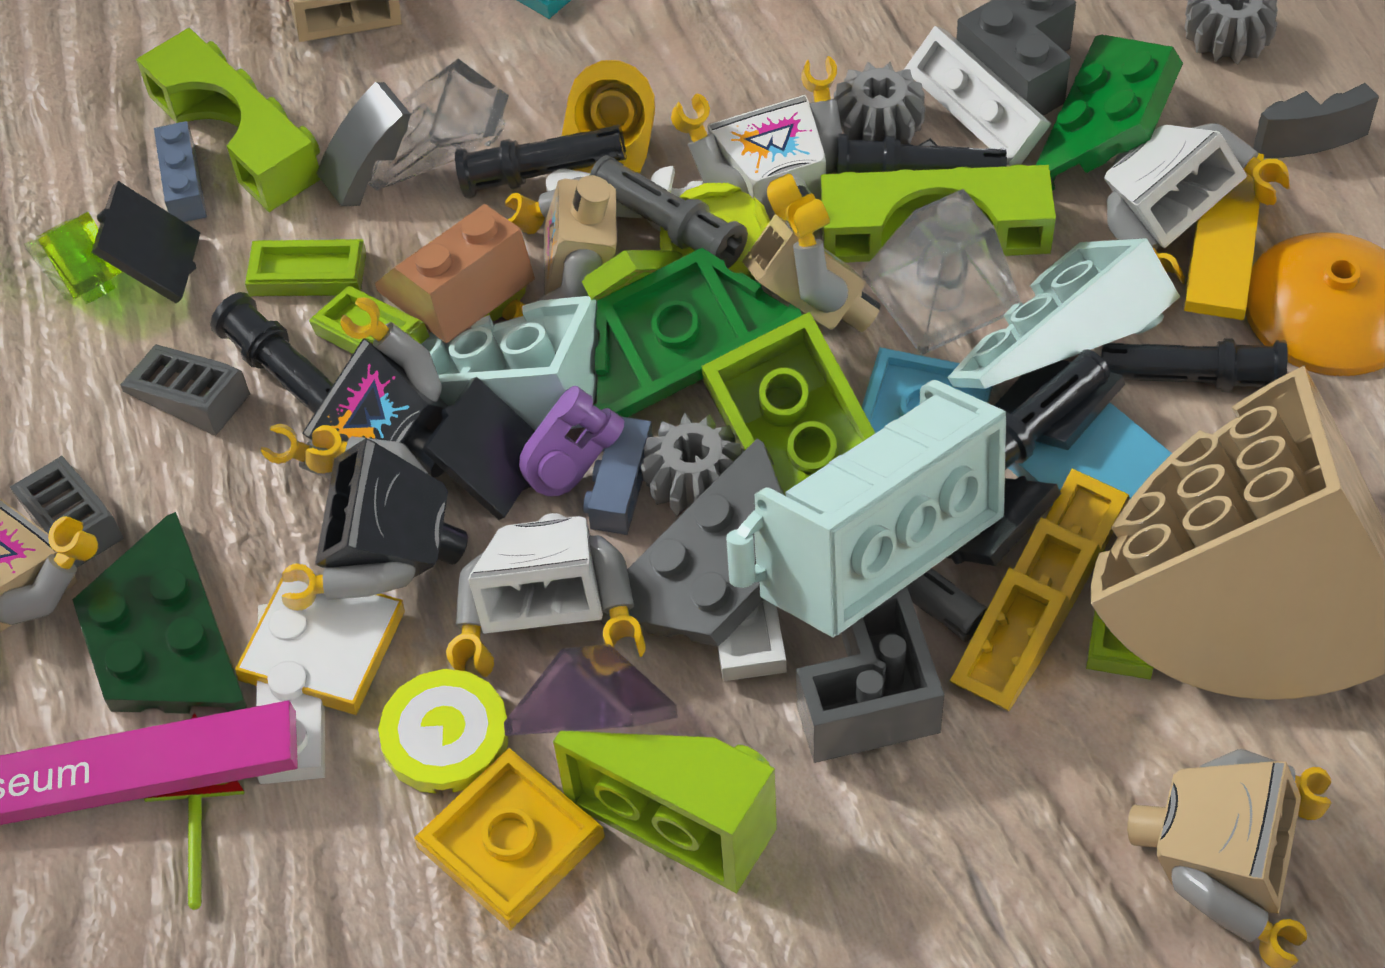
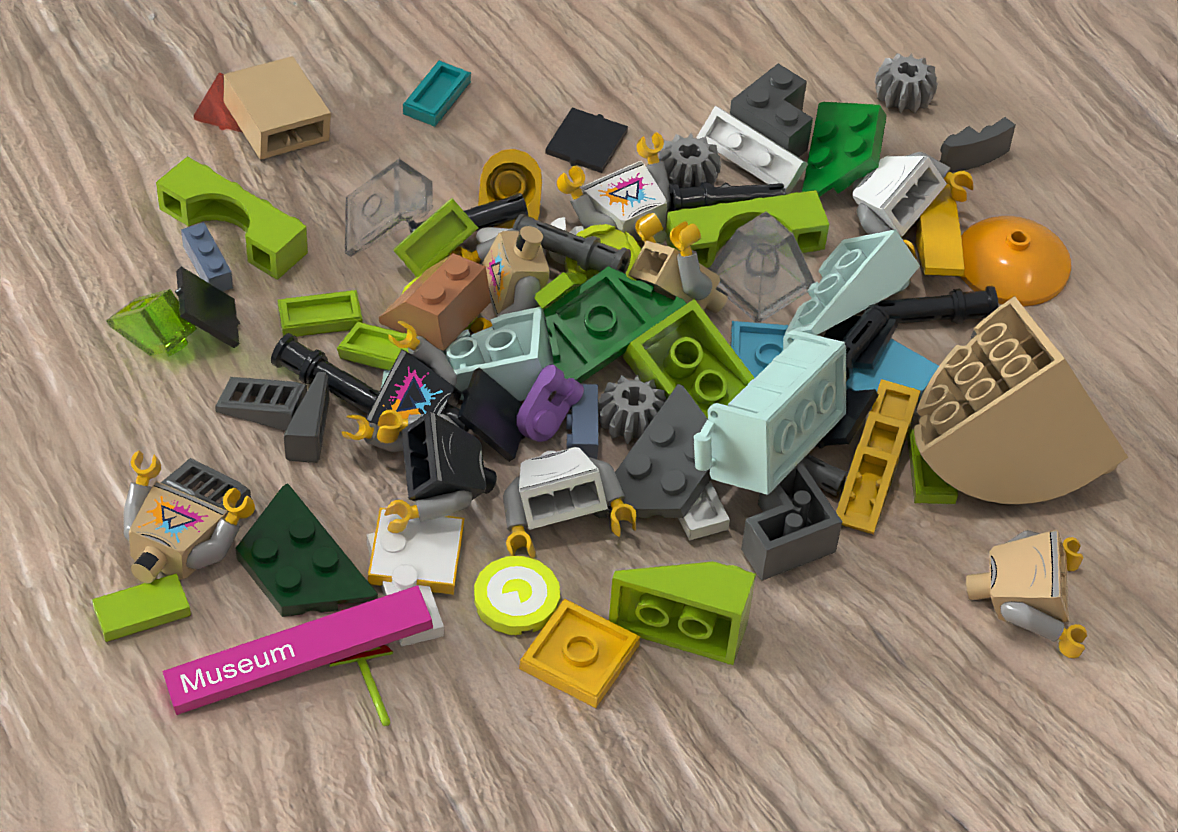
camera: 20 degrees left, 5 degrees down
(231, 427) = (306, 429): none -> dark grey slope
(366, 135) = (343, 218): dark grey slope -> none
(485, 175) = (435, 238): none -> lime tile
(589, 692) = (617, 550): clear purple slope -> none
(750, 58) = (586, 140): none -> black piece

